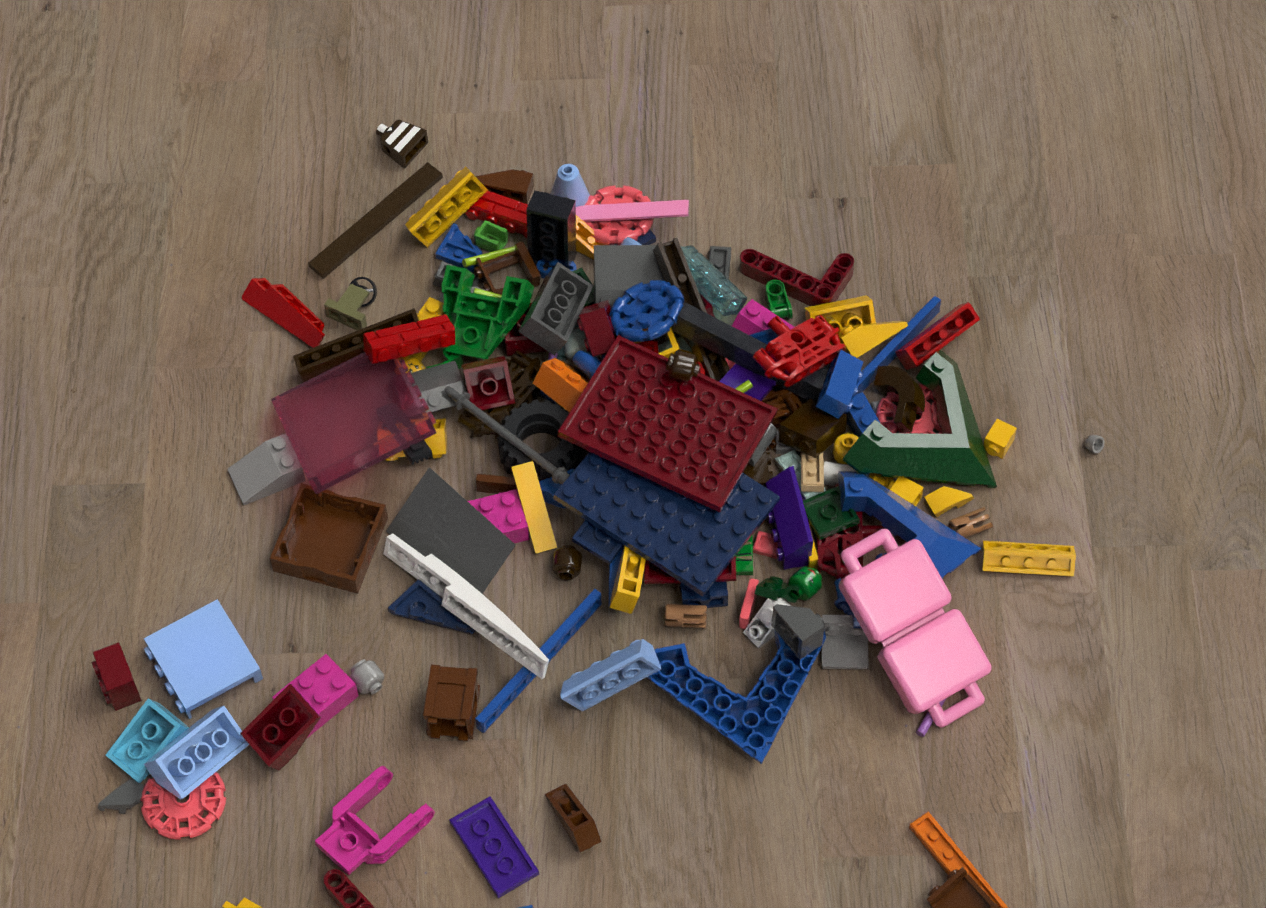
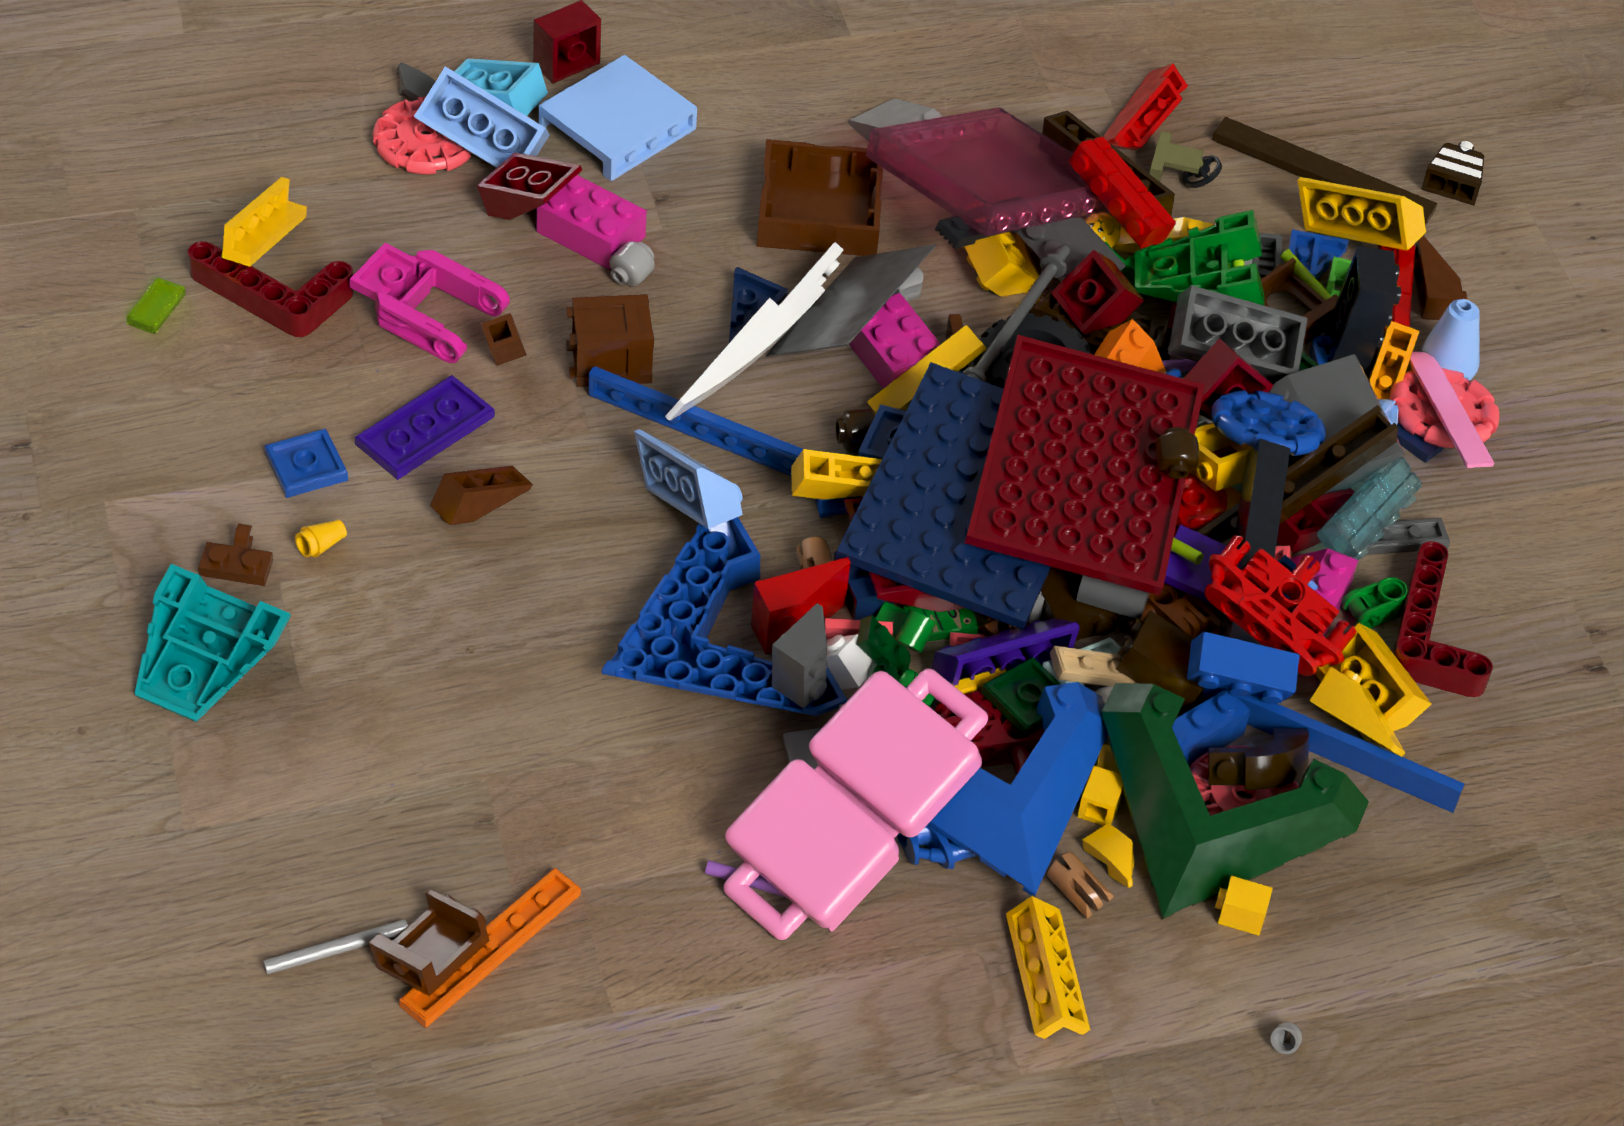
camera: 70 degrees right, 10 degrees down
(430, 775) = (503, 339): none -> reddish brown brick
(728, 632) = (788, 597): none -> red slope
(755, 568) = (909, 627): none -> green panel
(937, 336) = (1401, 800): red brick -> none

